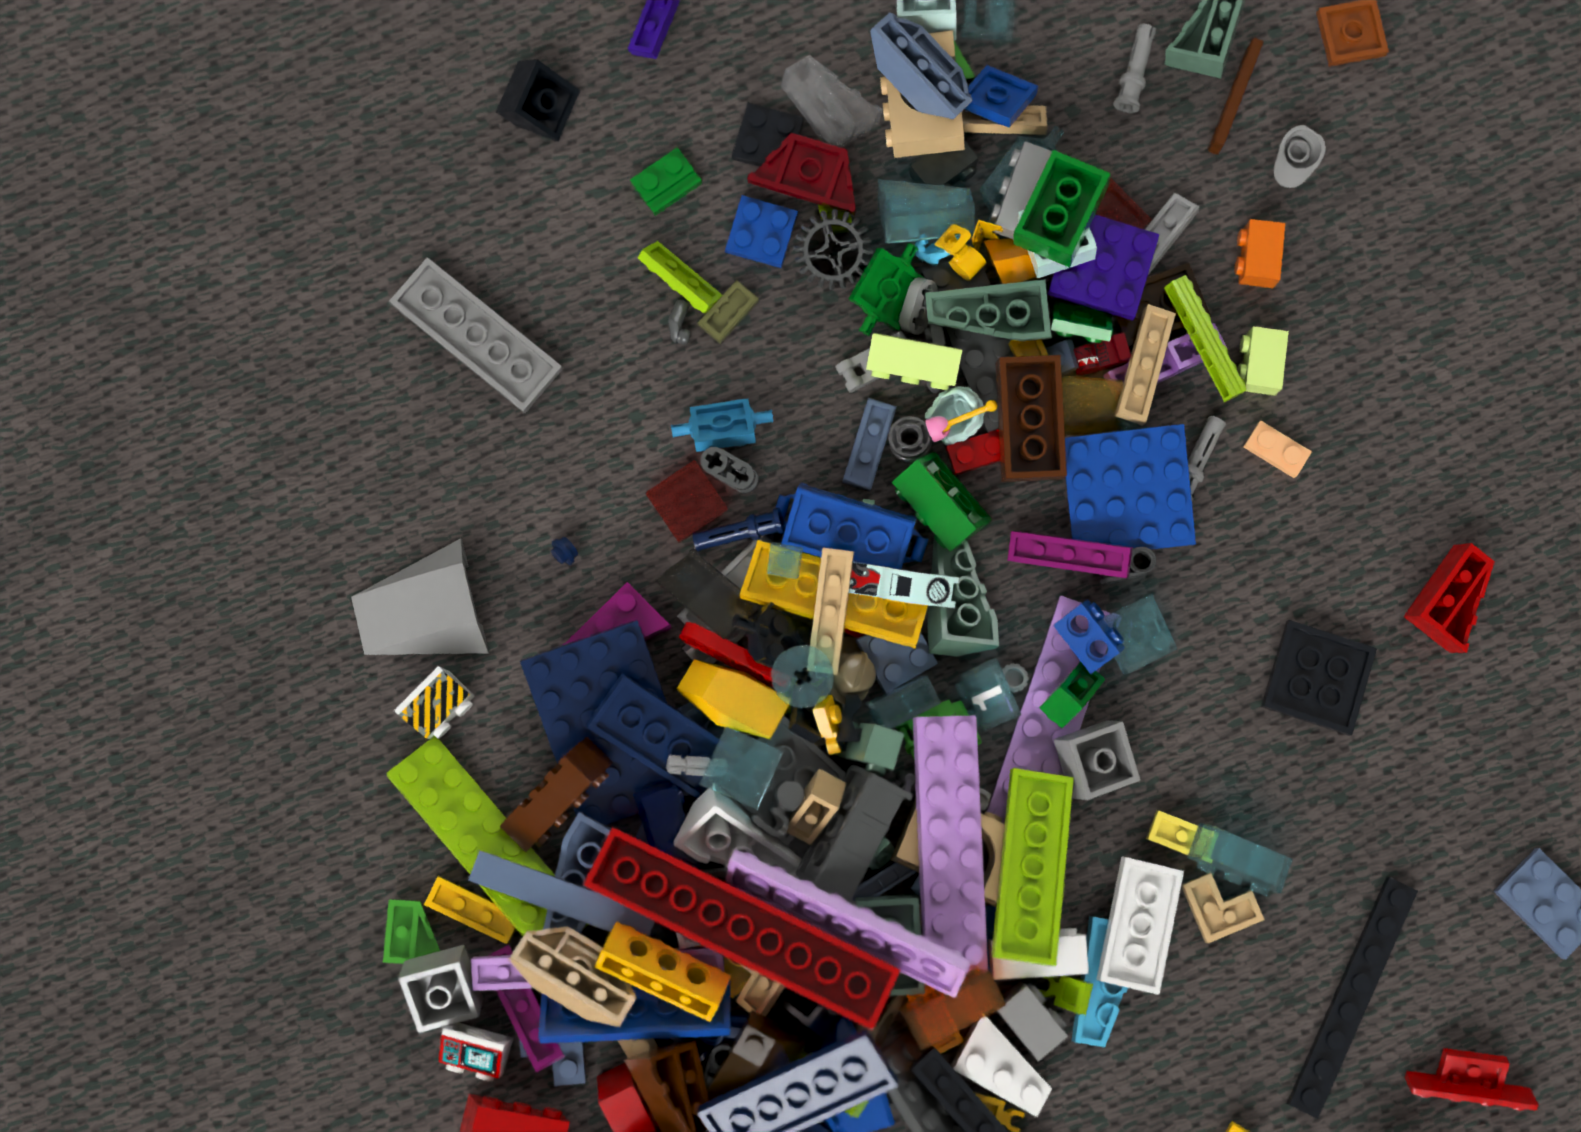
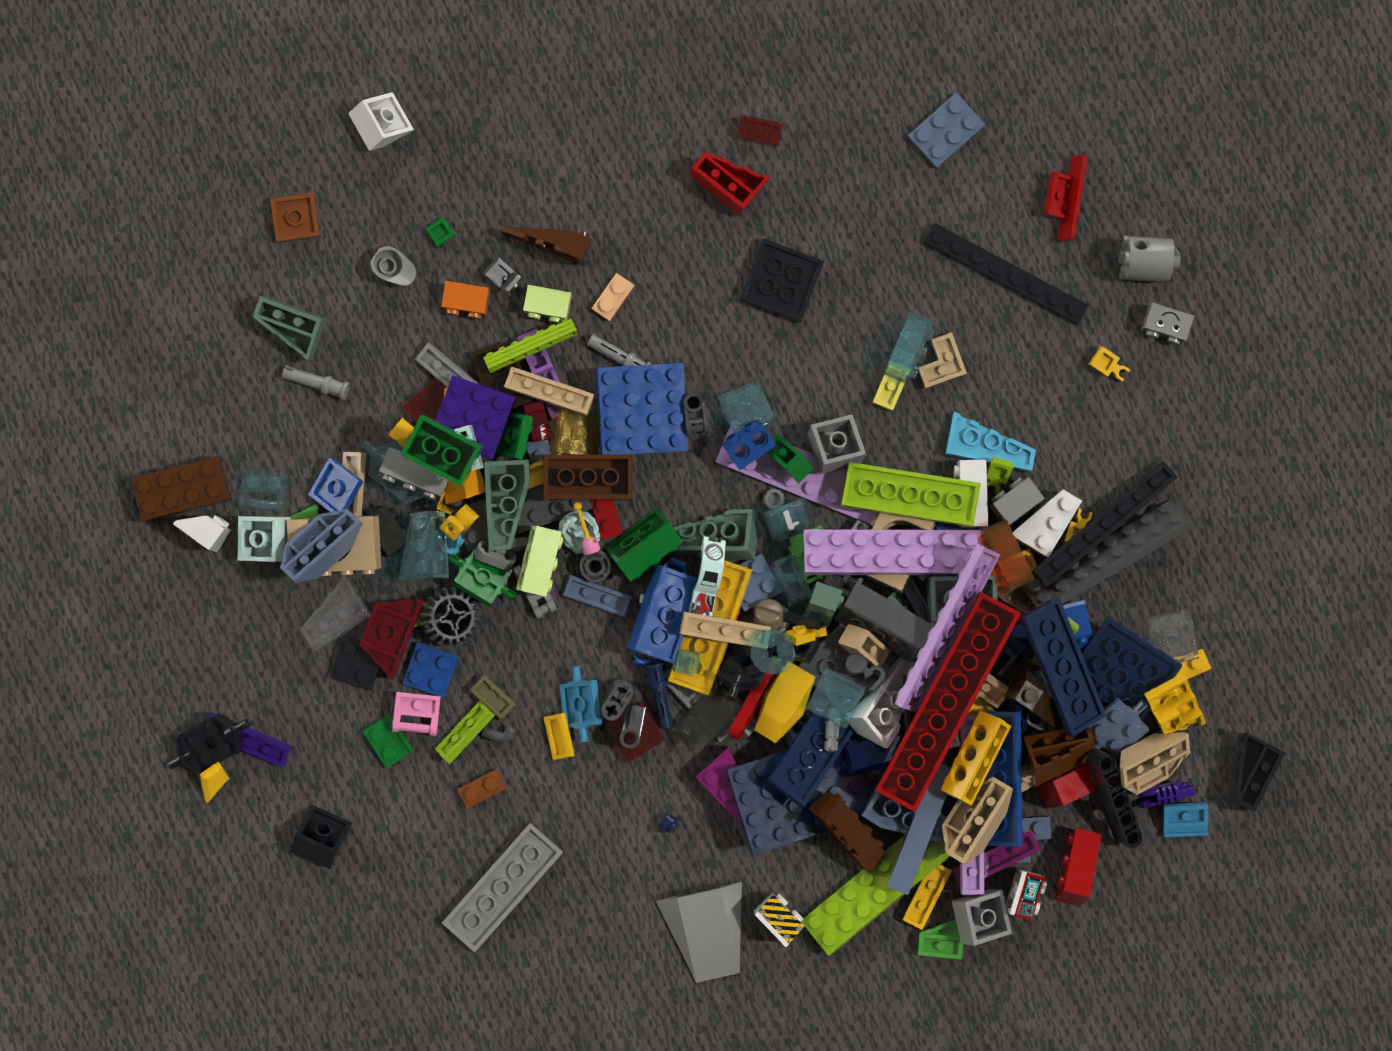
camera: 95 degrees left, 5 degrees up
(606, 304) = (481, 788): none -> dark orange plate
(678, 400) = (559, 736): none -> yellow tile
(697, 494) = (633, 724): none -> dark grey piece
(712, 213) = (416, 706): none -> bright pink plate
(1070, 554) = (687, 454): magenta plate -> none
(1140, 925) = (953, 420): white plate -> none
(1235, 96) = (342, 309): reddish brown tile -> none
(1297, 299) = (502, 275): none -> flat silver bracket
(1347, 219) = (440, 232): none -> green tile
(1348, 373) = (562, 243): none -> reddish brown wedge
(1492, 133) = (380, 121): none -> white slope
(1526, 639) = (759, 130): none -> clear red plate

